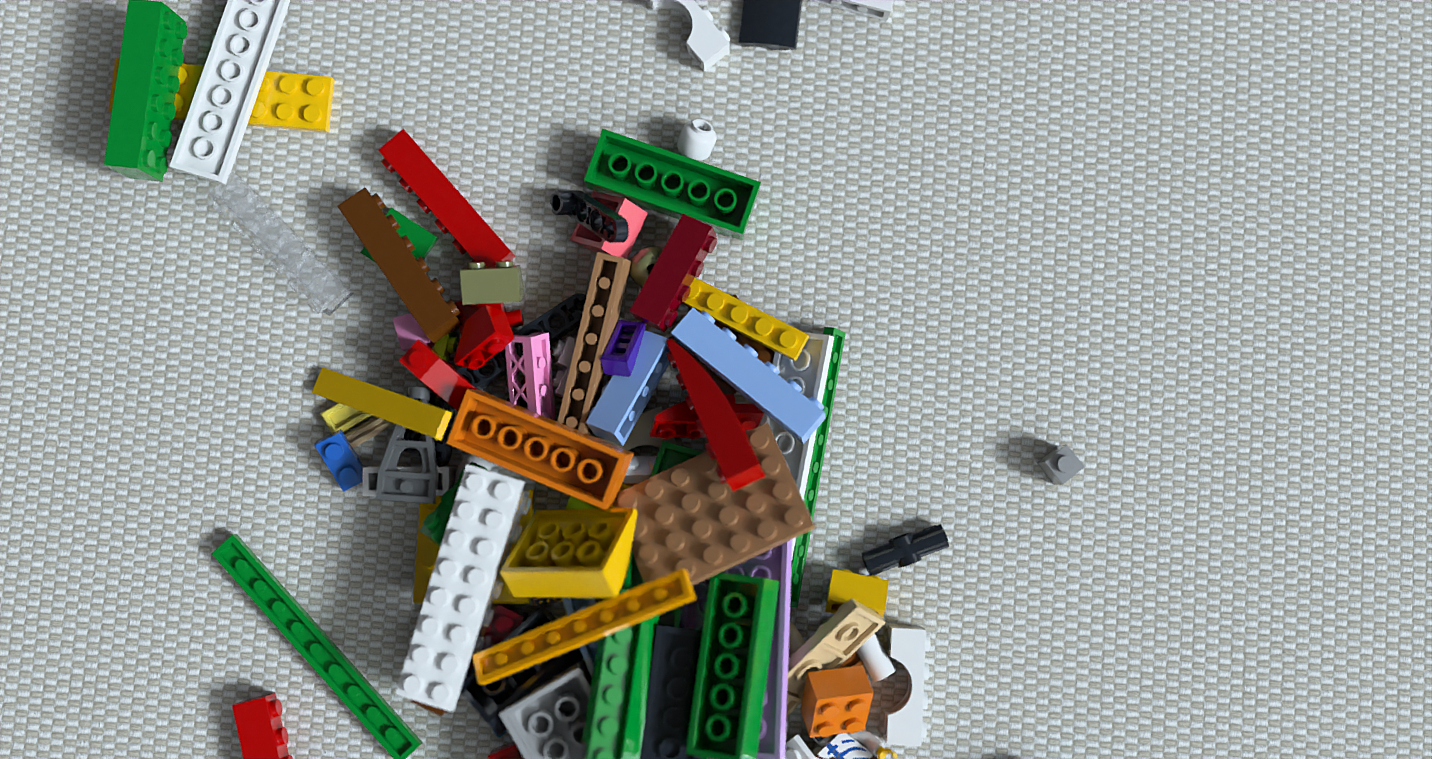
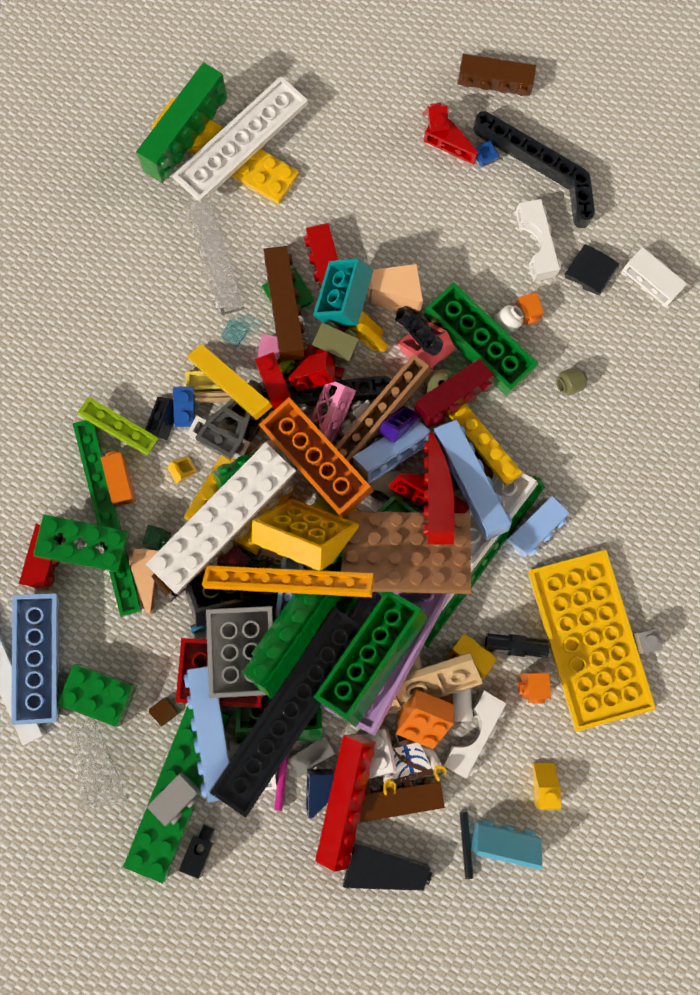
camera: 20 degrees right, 5 degrees down
(270, 528) = (117, 426): none -> lime plate
(294, 721) = (75, 531): none -> green brick
(306, 594) = (118, 478): none -> orange brick
(321, 489) = (161, 418): none -> black slope
(357, 329) = (235, 332): none -> clear light blue slope
(381, 539) = (182, 469): none -> yellow slope
(393, 644) = (156, 537): none -> clear green brick
(415, 717) = (142, 574): none -> light nougat slope
(468, 216) = (343, 292): none -> teal brick
(525, 246) = (369, 333): none -> yellow panel
(532, 172) = (396, 288): none -> light nougat slope
(716, 111) = (531, 308): none -> orange brick
(814, 180) = (571, 381): none -> olive head
(861, 388) = (538, 527): none -> light blue brick
(950, 592) = (535, 687): none -> orange brick
(992, 496) = (591, 640): none -> yellow plate
(1022, 703) = (546, 786): none -> yellow slope

